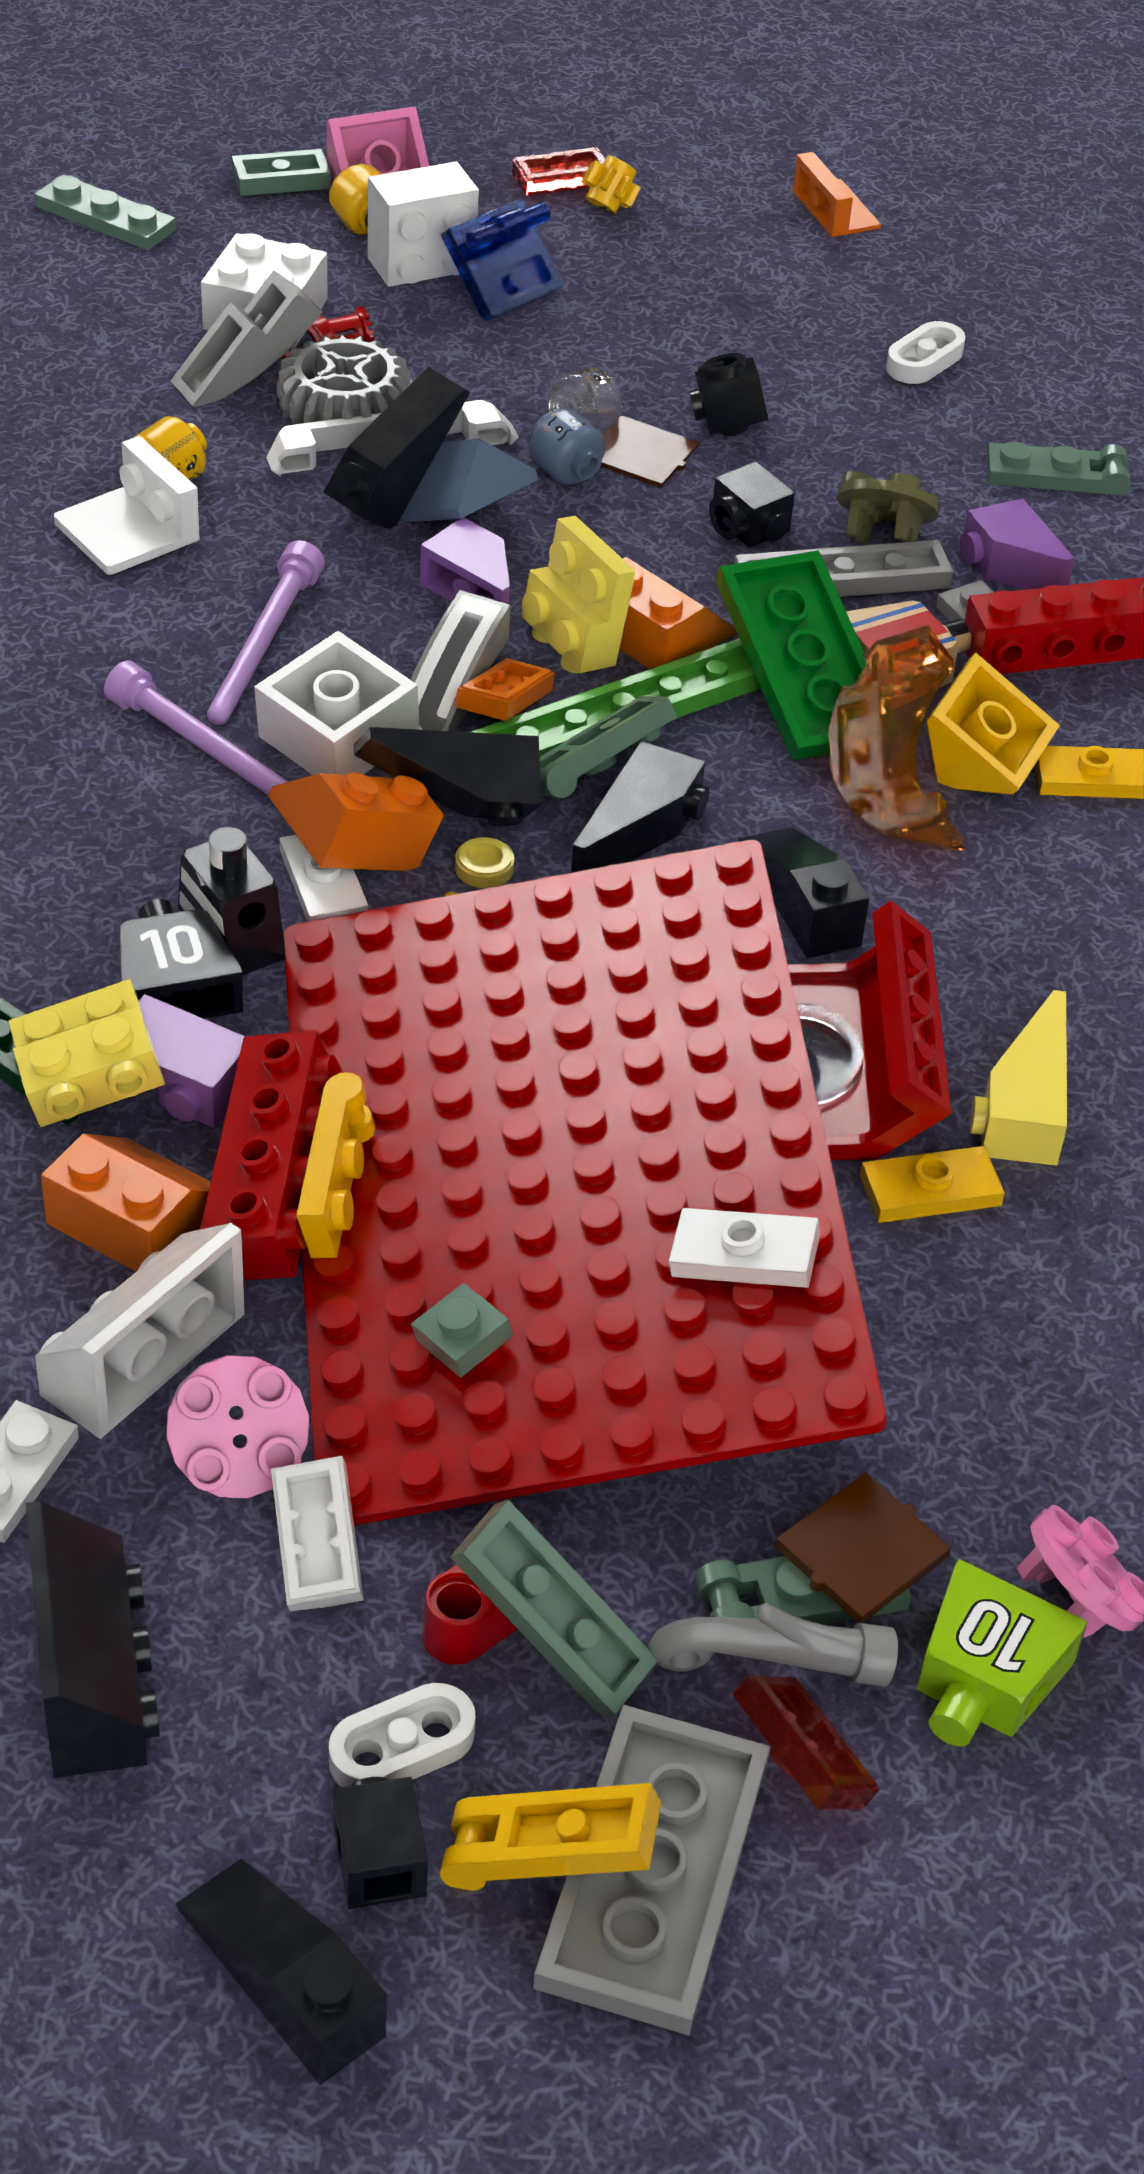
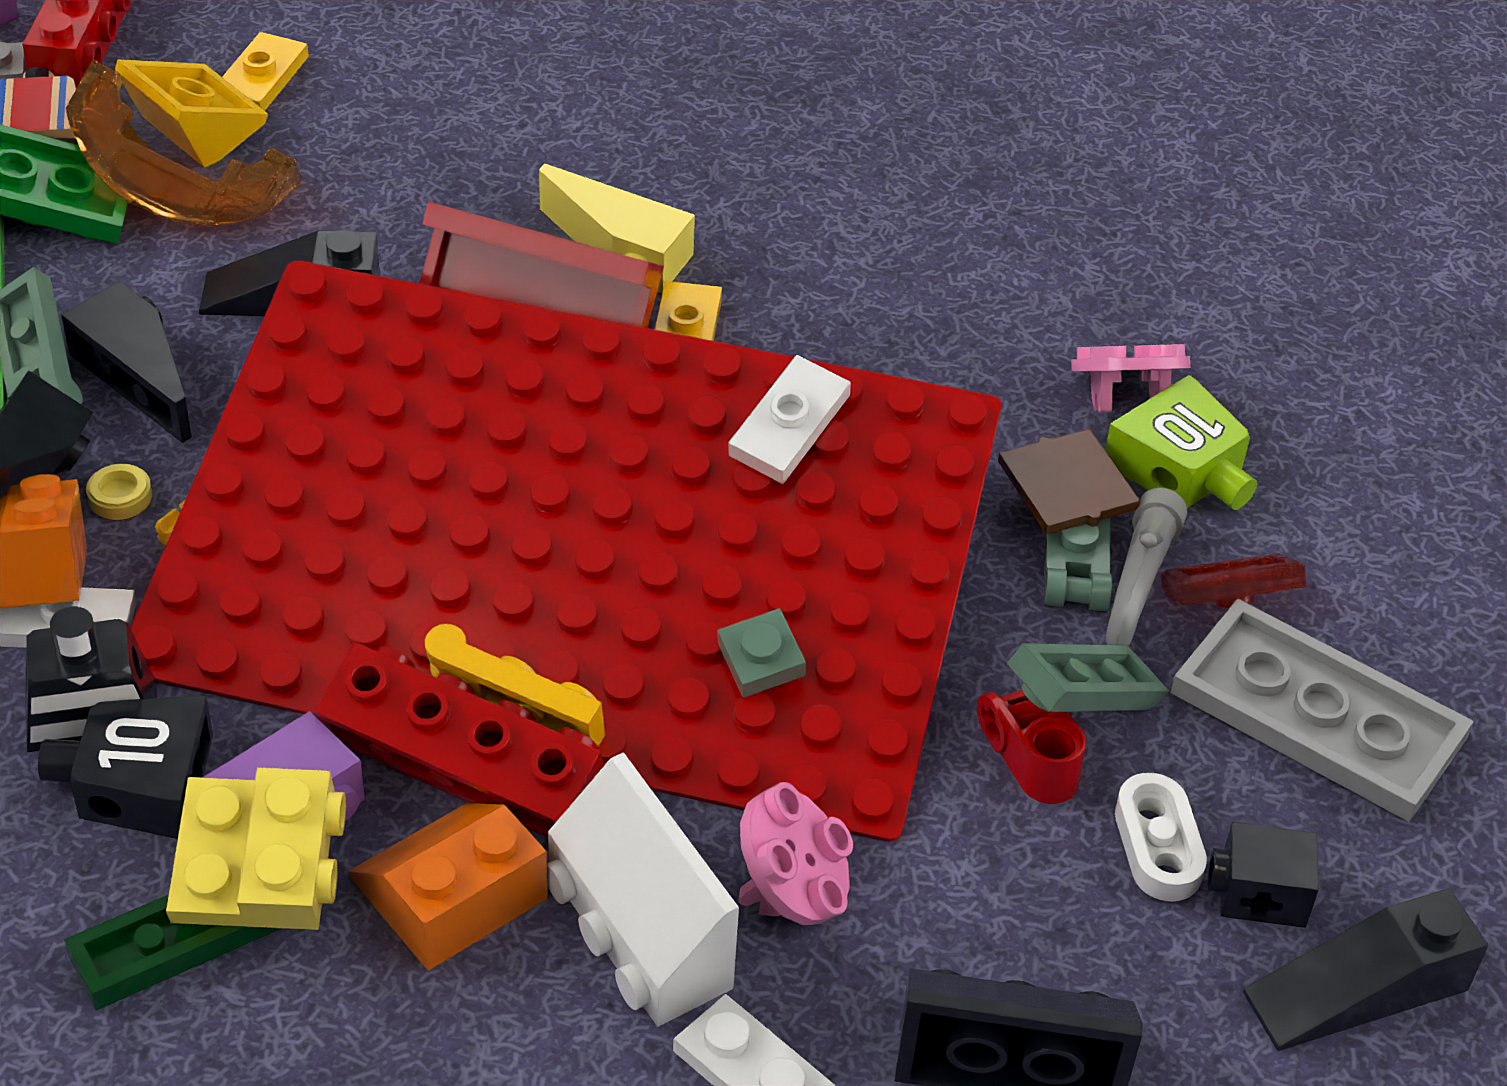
camera: 70 degrees left, 0 degrees up
(317, 1534) = (927, 835): white plate -> none
(551, 1834) = (1304, 743): yellow plate -> none

